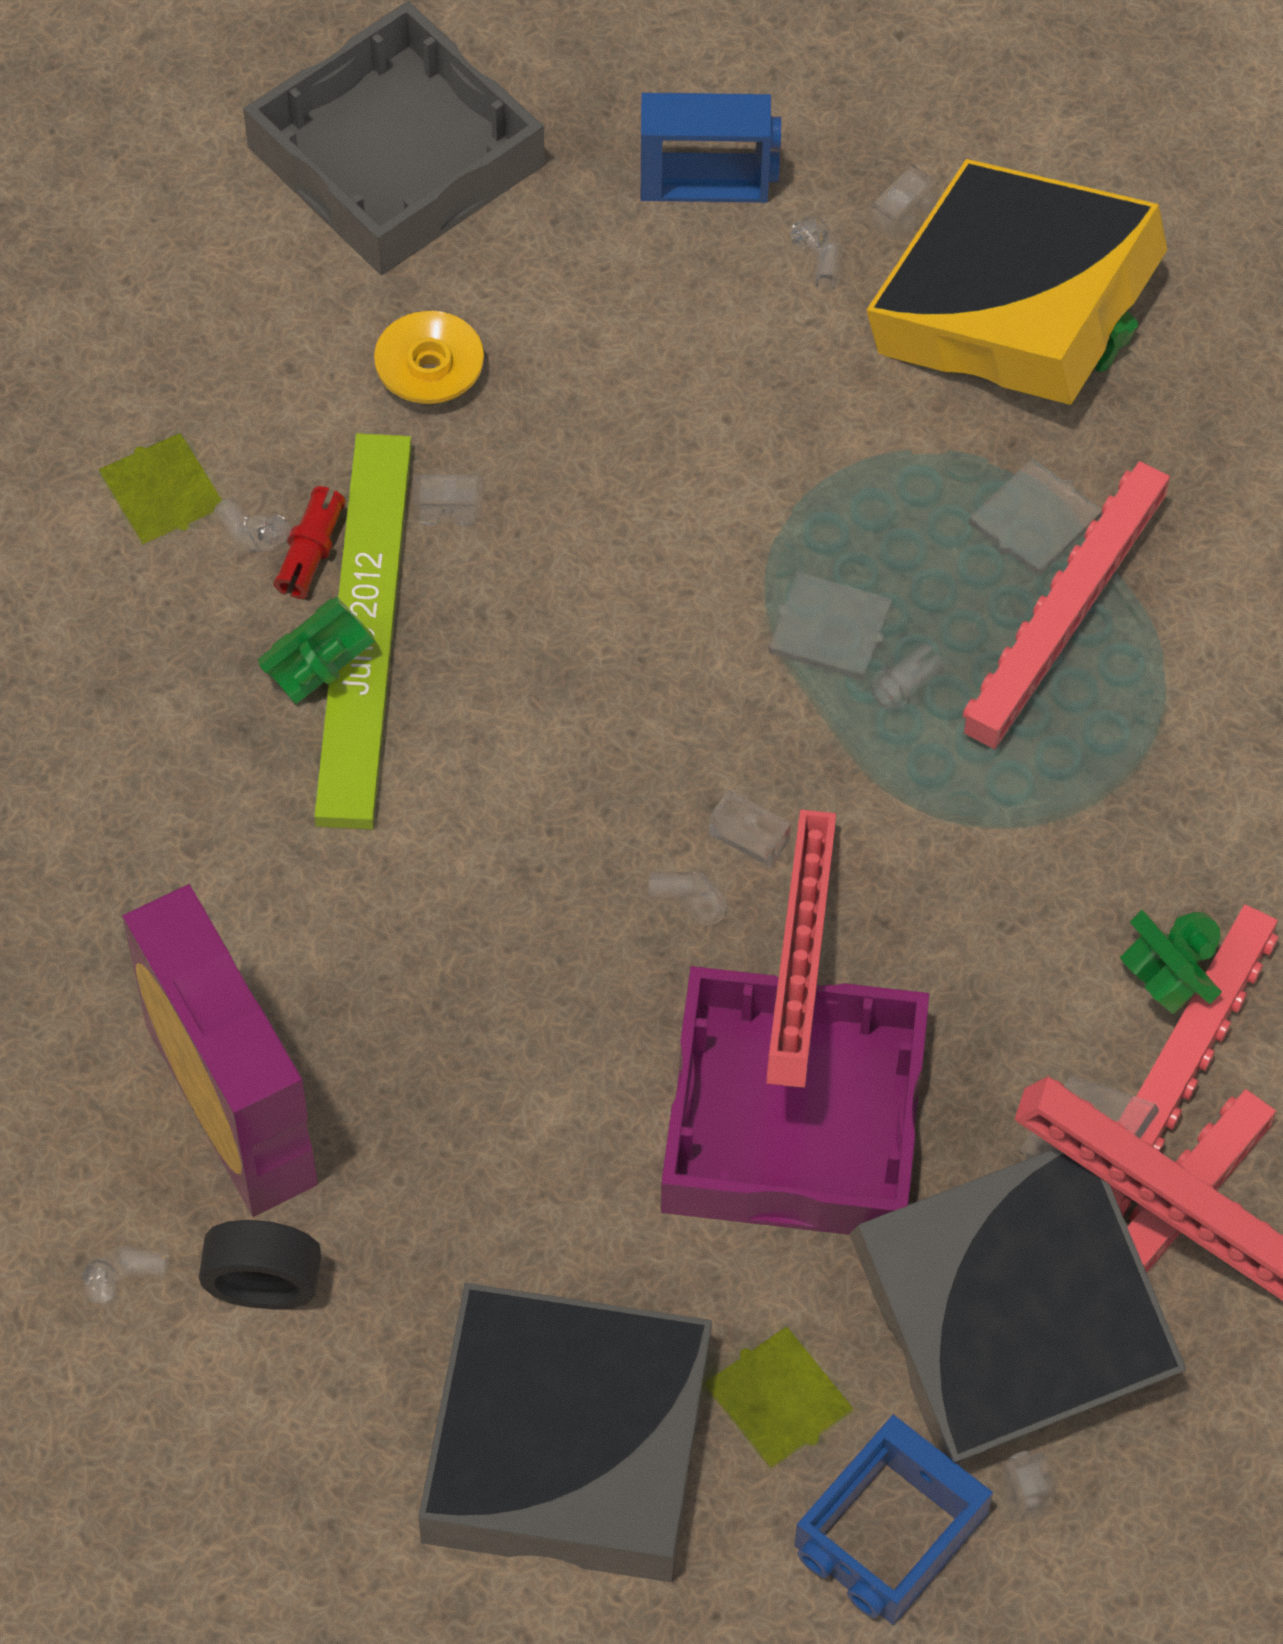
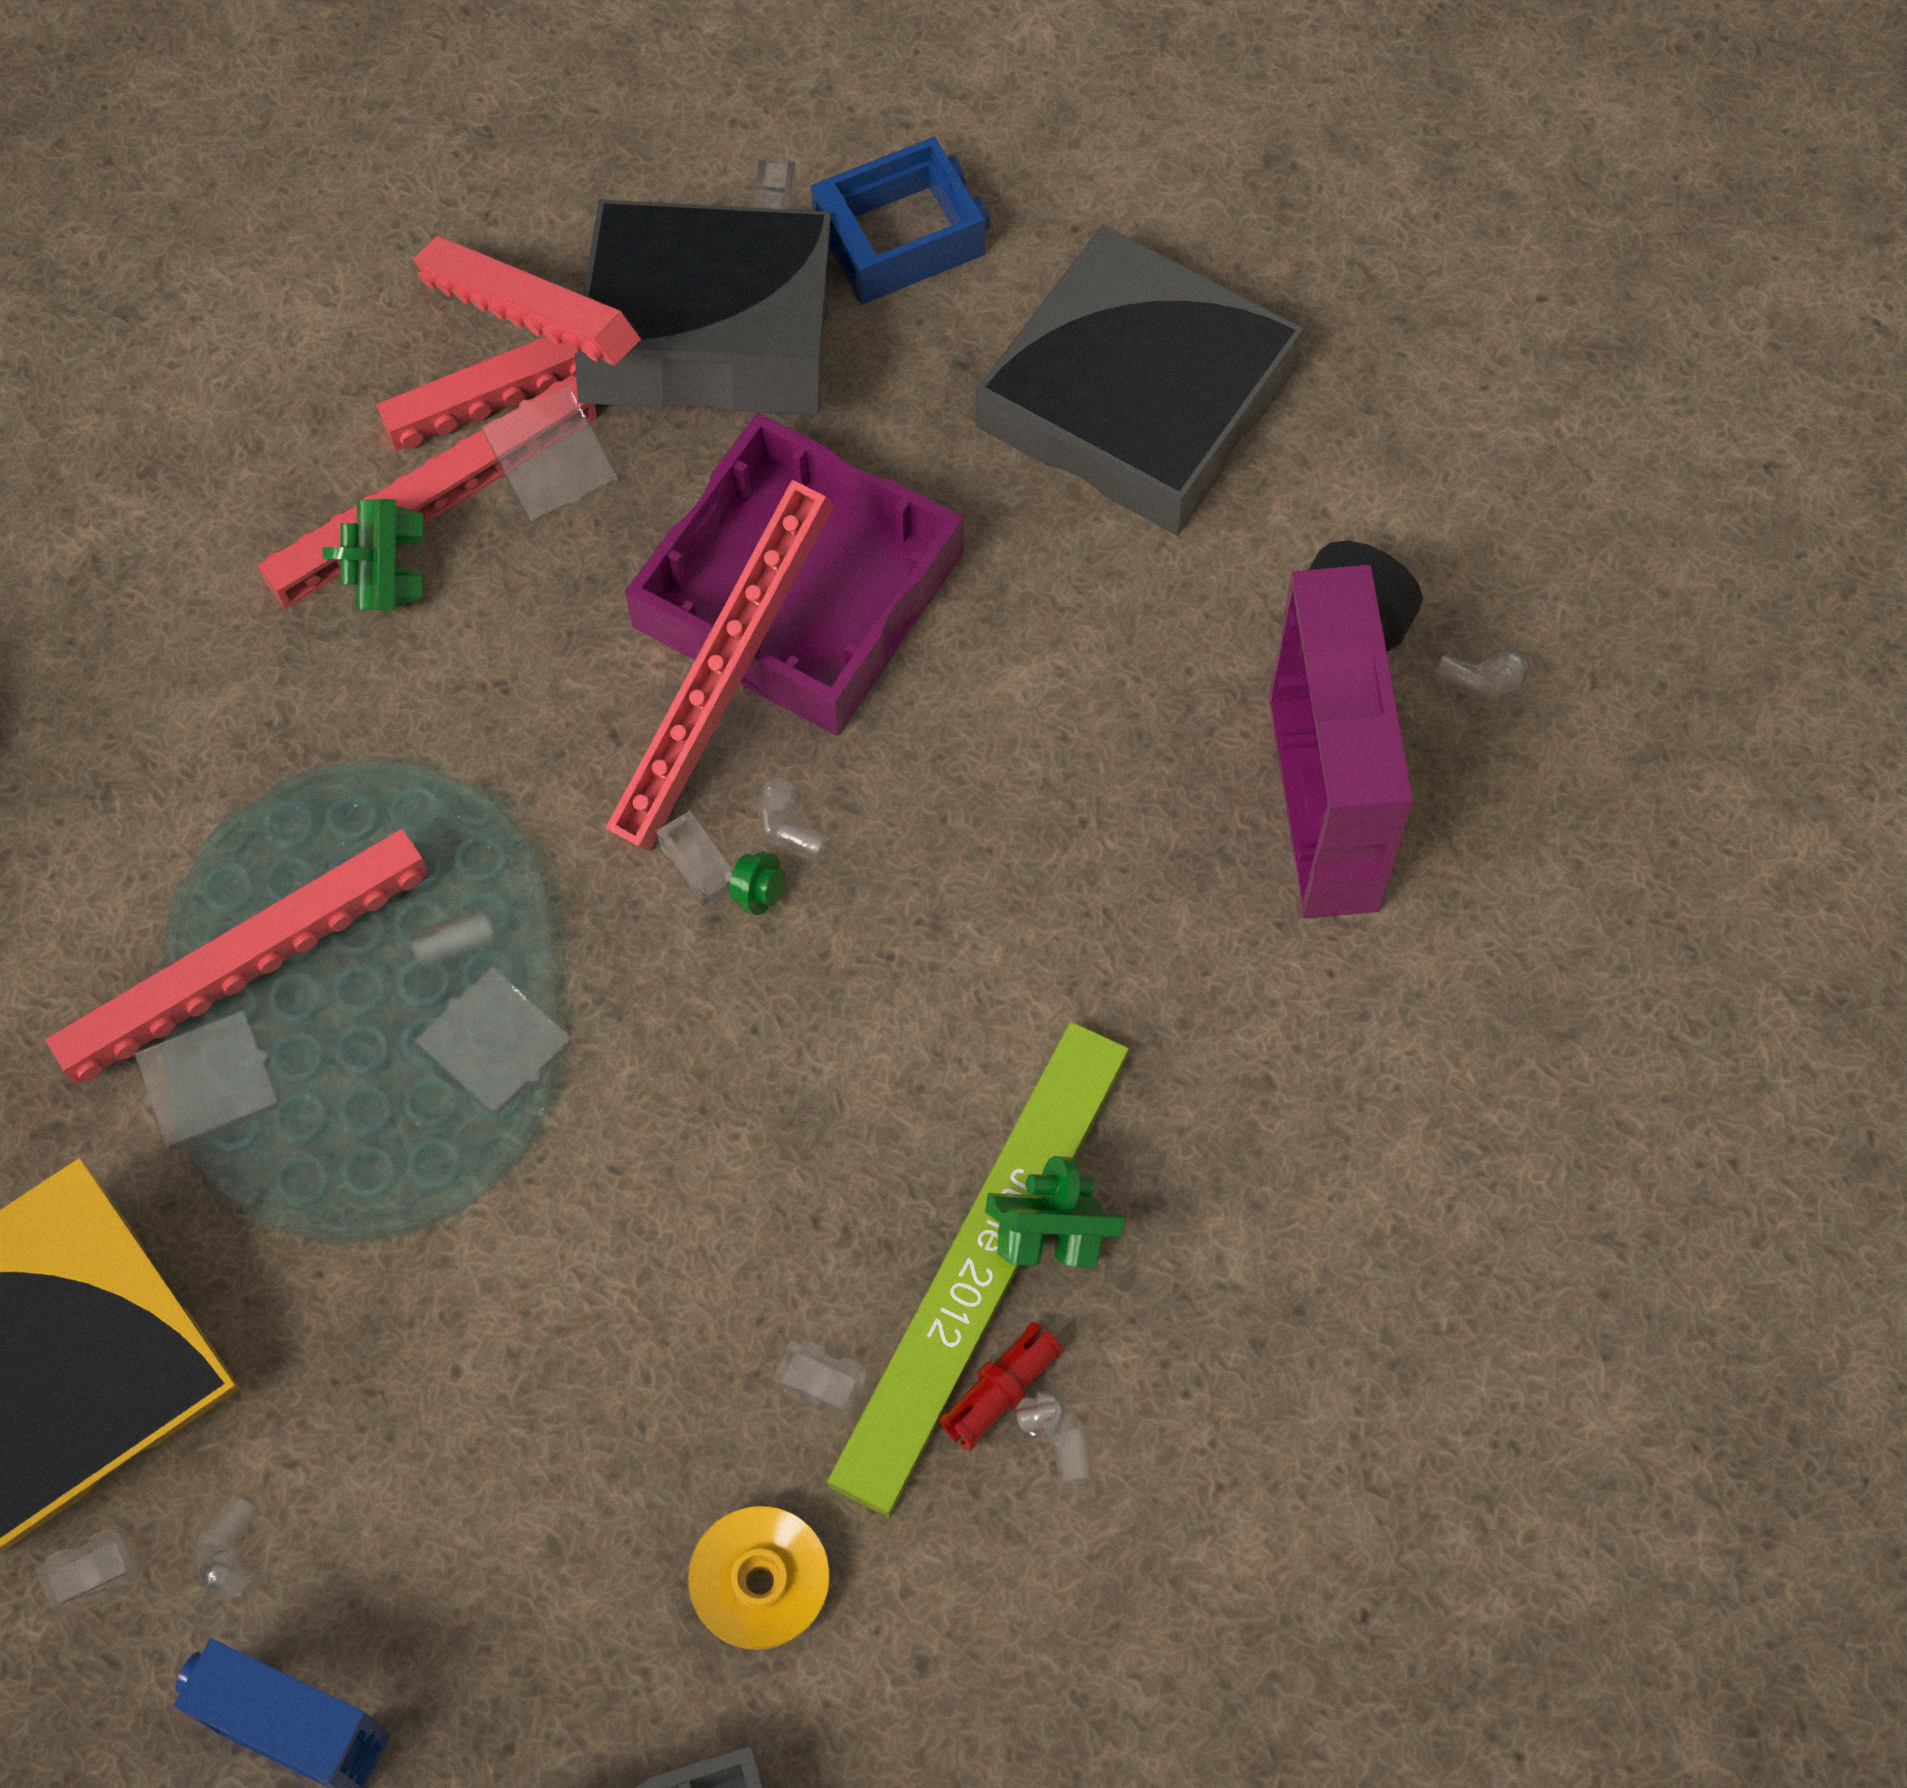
camera: 155 degrees left, 5 degrees up
(160, 488) = (1140, 1549): clear neon green piece -> none
(687, 828) = (757, 882): none -> green plate
(778, 1397) = (936, 363): clear neon green piece -> none

